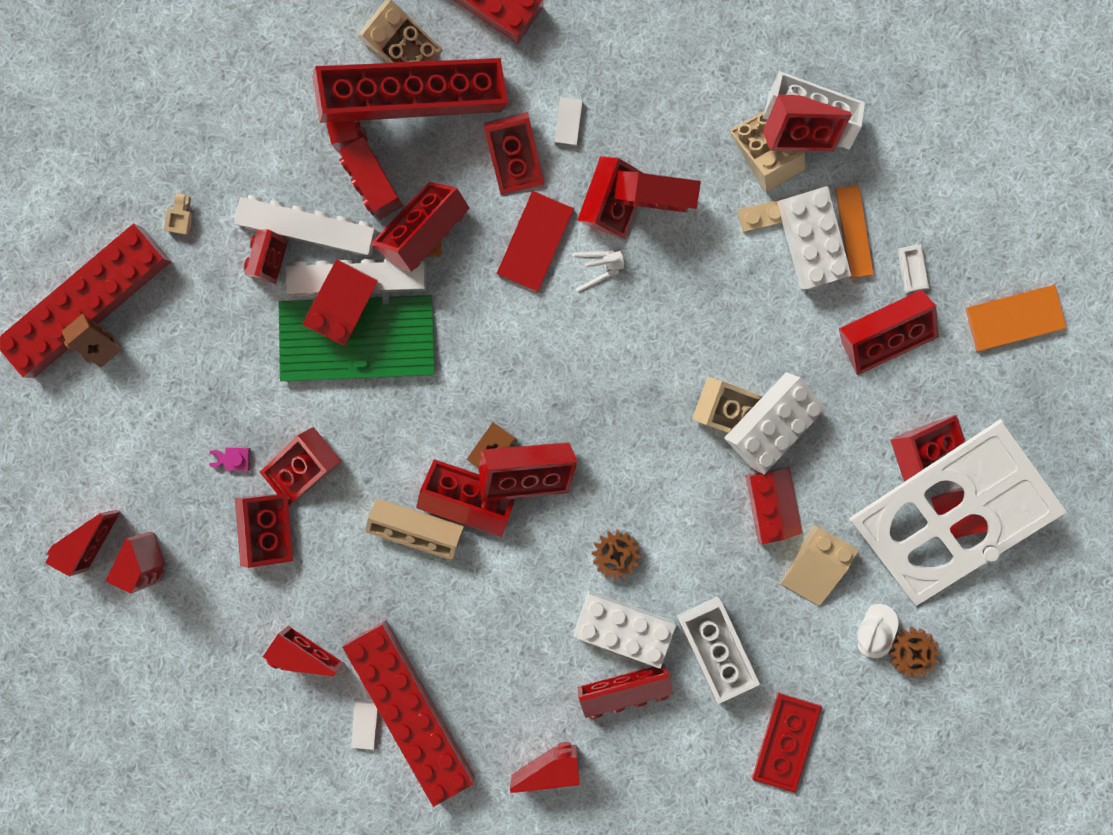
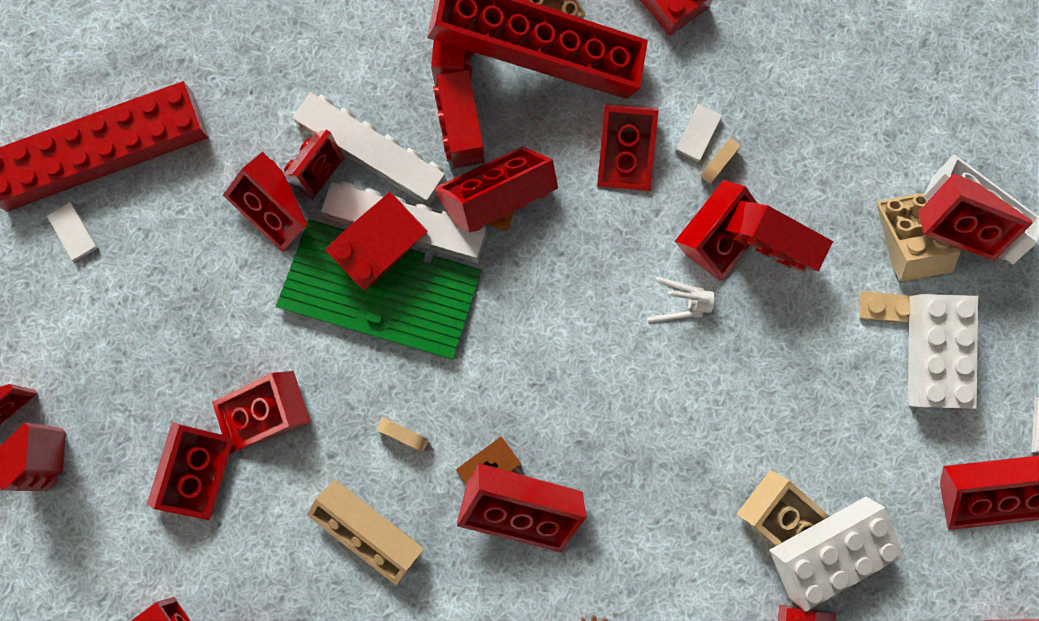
camera: 20 degrees right, 10 degrees down
(90, 341) = (84, 190): dark orange brick -> none
(94, 377) = (72, 232): none -> white tile
(178, 219) = (234, 95): tan plate -> none
(234, 458) = (189, 377): dark pink plate -> none
(240, 299) = (267, 201): none -> red slope
(416, 446) = (402, 434): none -> tan beam
(457, 497) = (429, 510): red slope -> none
(535, 241) = (618, 249): red tile -> none
(593, 139) = (720, 160): none -> tan beam
(854, 231) = (991, 359): orange tile -> none

